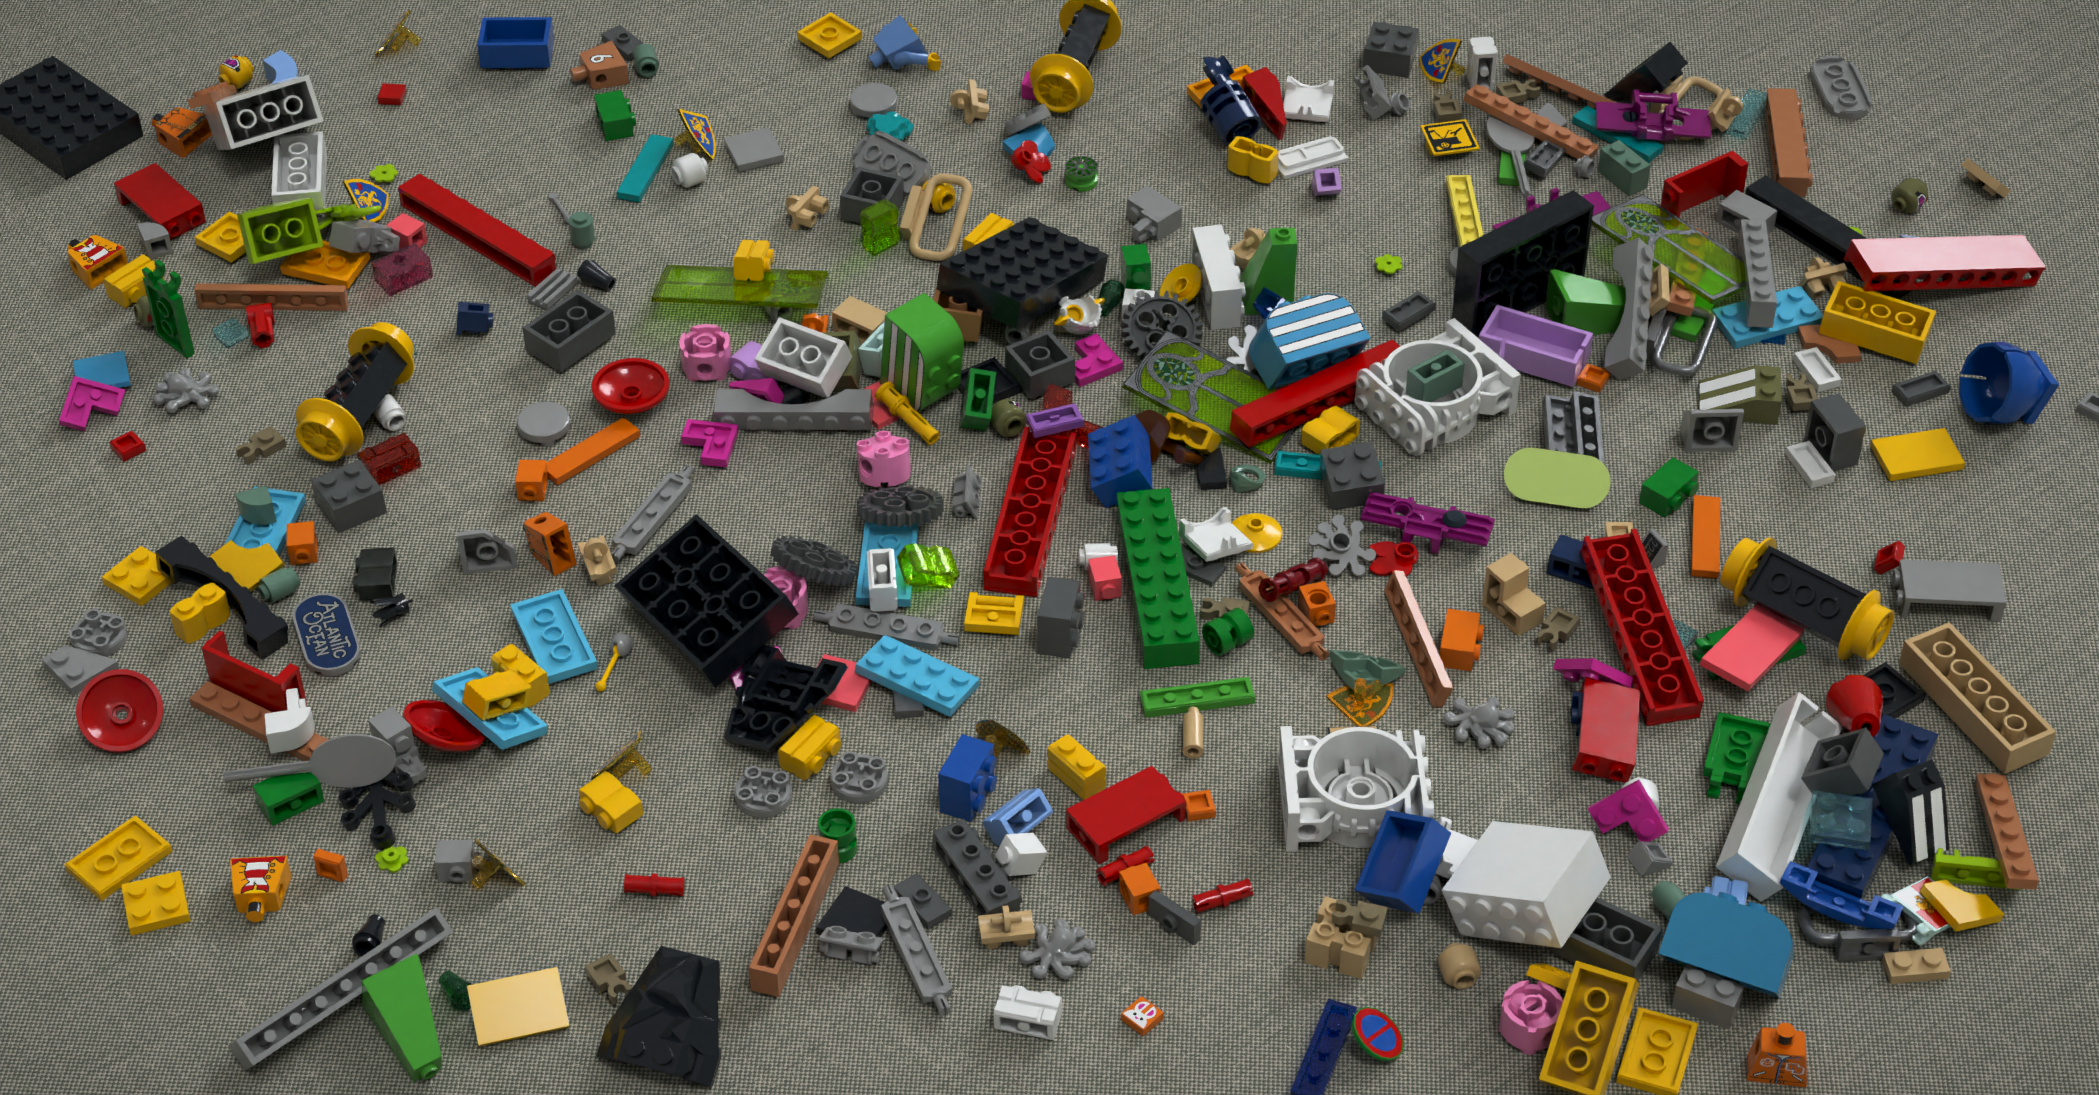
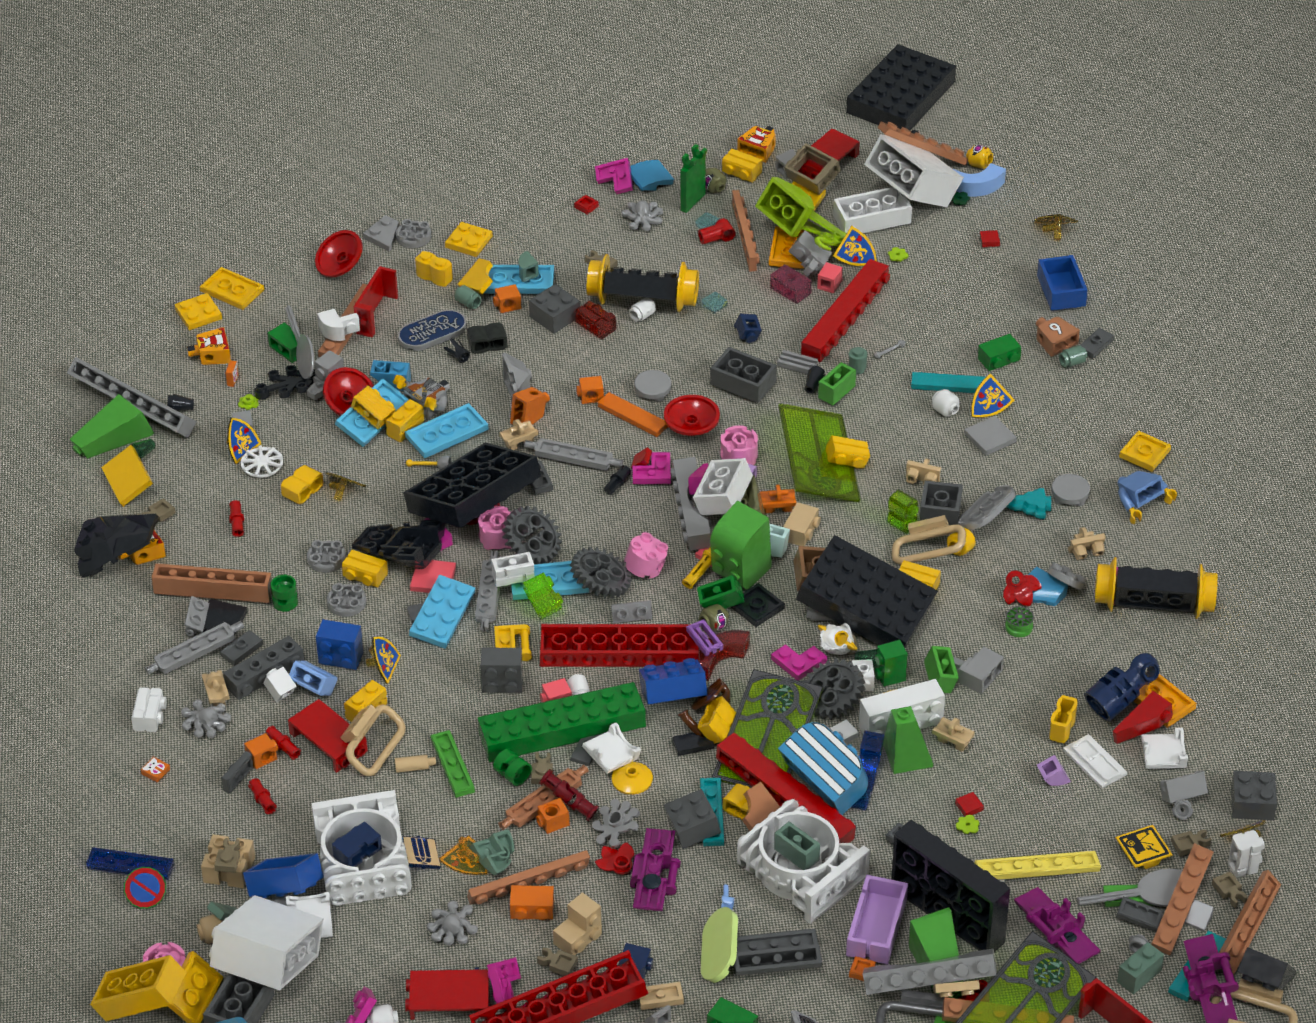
camera: 80 degrees right, 0 degrees up
(187, 564) = (425, 298): black arch -> none
(190, 189) = (823, 179): none -> dark tan window
(418, 674) = (388, 371): none -> dark azure slope
(476, 643) = (425, 392): none -> torso
(537, 849) = (262, 461): none -> white wheel
(621, 251) = (837, 383): none -> bright green brick
(688, 449) = (642, 458): none -> red tile
(717, 477) = (617, 479): none -> black axle
(1039, 362) = (774, 625): dark grey brick -> none
(1146, 763) = (359, 728): none -> tan bar
(1157, 235) = (941, 666): none -> bright green brick
(1199, 805) = (347, 776): orange tile -> none
(1219, 339) = (848, 731): none -> white tile
(1241, 482) = (687, 755): sand green piece -> none
(1354, 410) = (759, 805): none -> nougat tile
(1357, 258) = (969, 804): none -> red tile
(1358, 781) = (356, 845): none -> dark blue brick
(1445, 939) = (220, 910): none -> sand green tile
(1477, 473) = (726, 900): none -> light blue hand

